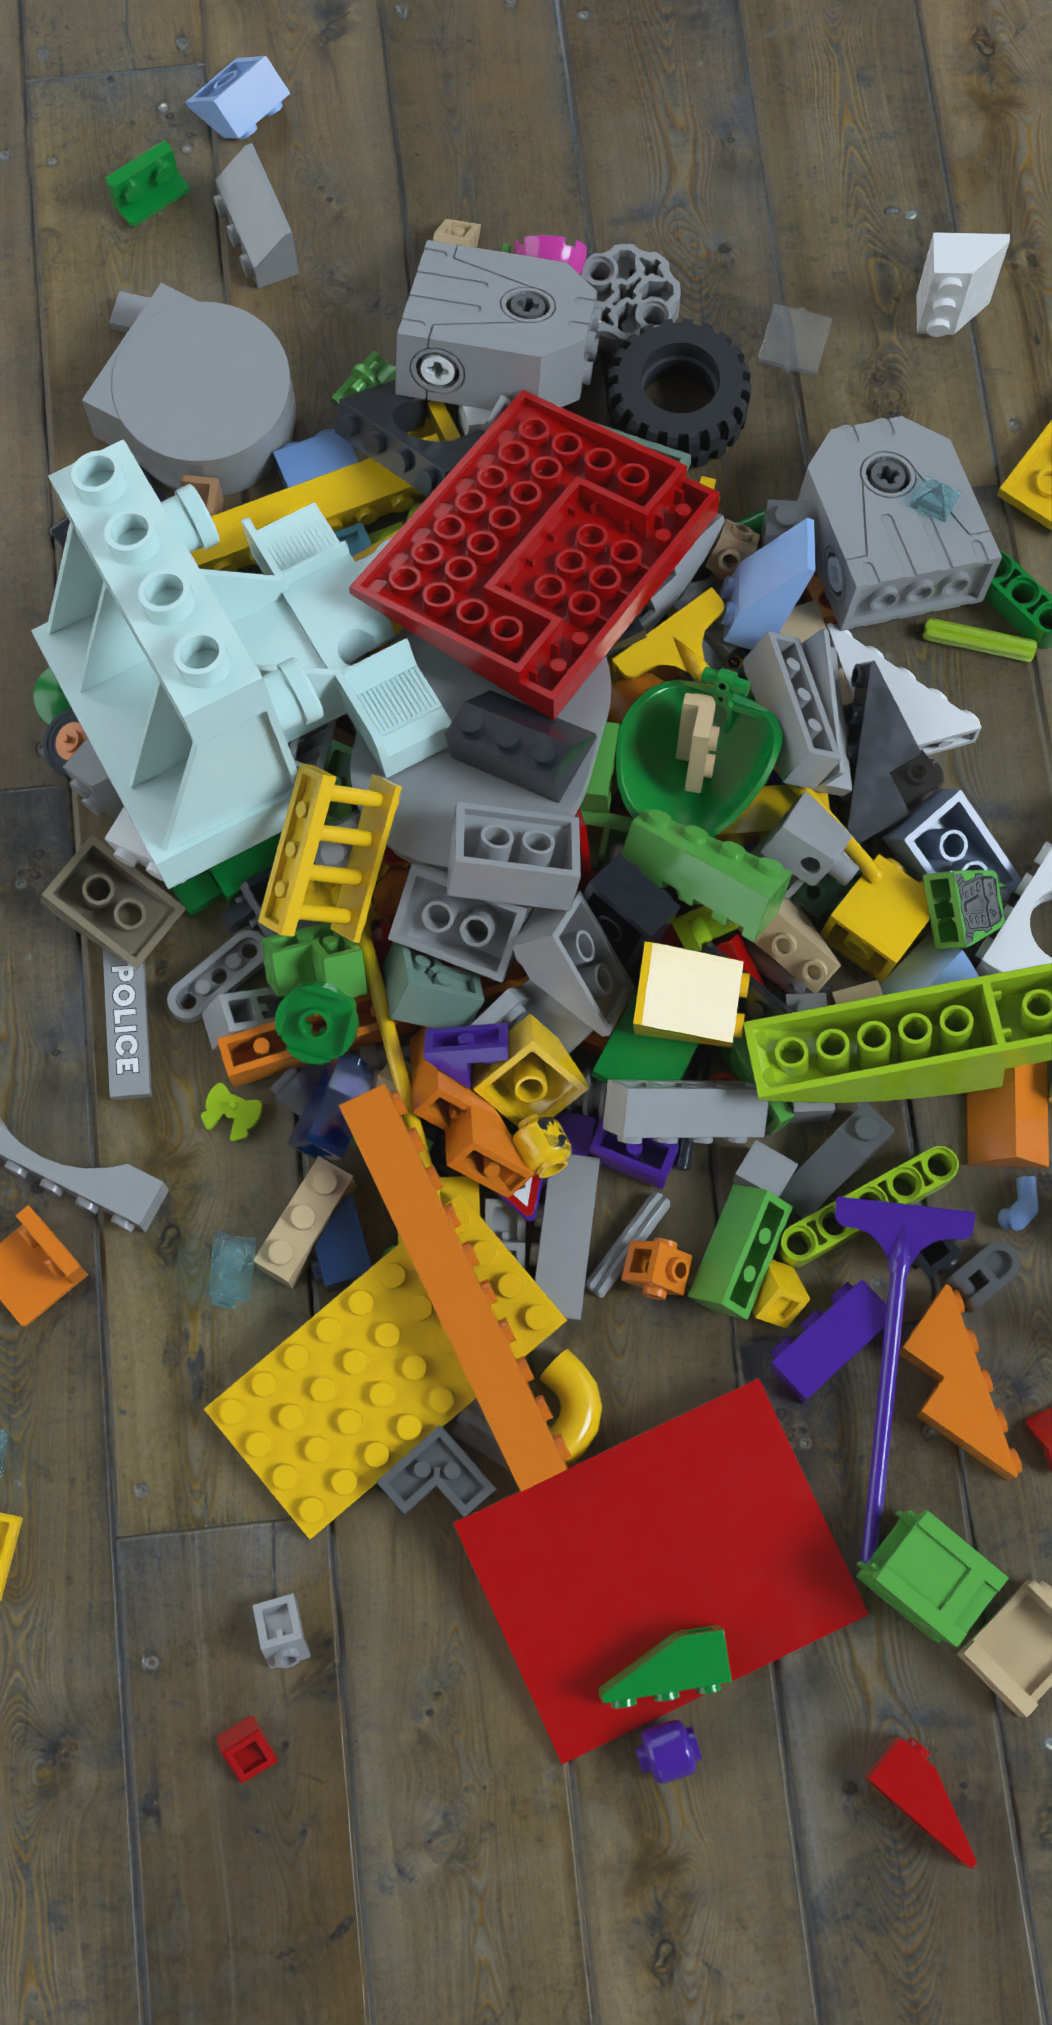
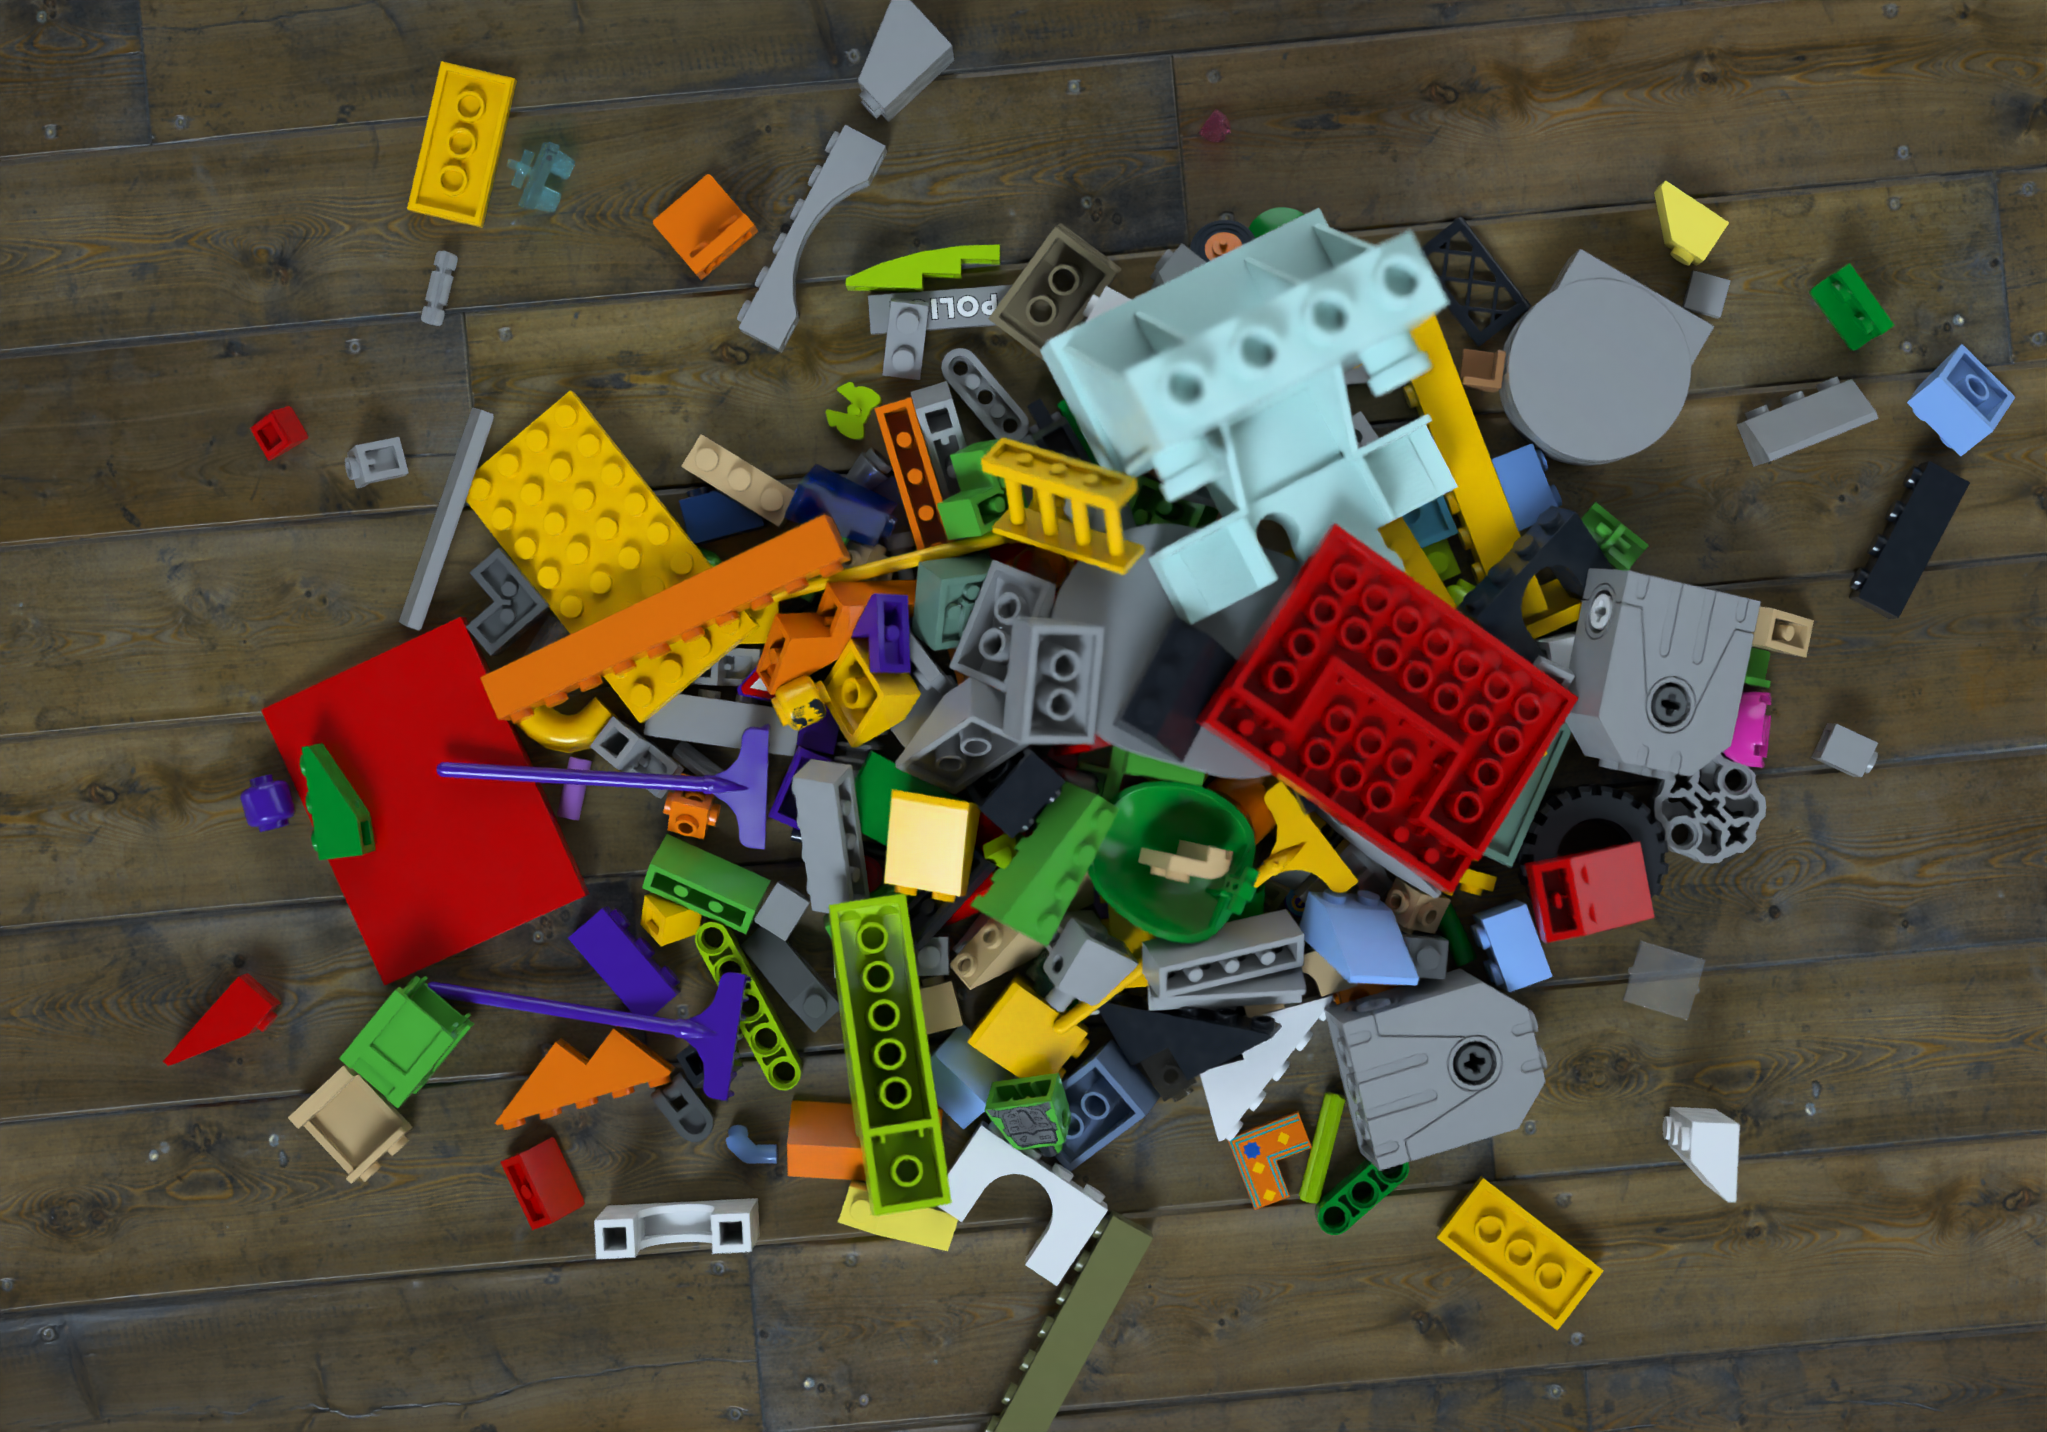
camera: 90 degrees right, 15 degrees up
(63, 328) = (1687, 225): none -> light yellow slope
(86, 1051) = (908, 272): none -> lime slope
(87, 1563) = (439, 288): none -> light grey axle
(156, 1055) = (905, 339): none -> light grey plate
(231, 1269) = (697, 413): clear light blue hips -> none
(335, 1008) = (934, 498): green plate -> none
(344, 1548) = (446, 518): none -> light grey tile
(369, 137) = (1908, 539): none -> black brick
(568, 185) = (1846, 750): none -> light grey brick
(605, 1327) = (633, 752): none -> light grey brick
(635, 1210) = (740, 786): none -> dark purple piece
(641, 1402) = (573, 795): none -> medium lavender hinge
(714, 380) = (1589, 892): none -> red slope
(767, 460) = (1511, 946): none -> light blue brick
(935, 499) = (1444, 1108): clear light blue slope -> none
(990, 698) = (1258, 1153): none -> orange tile

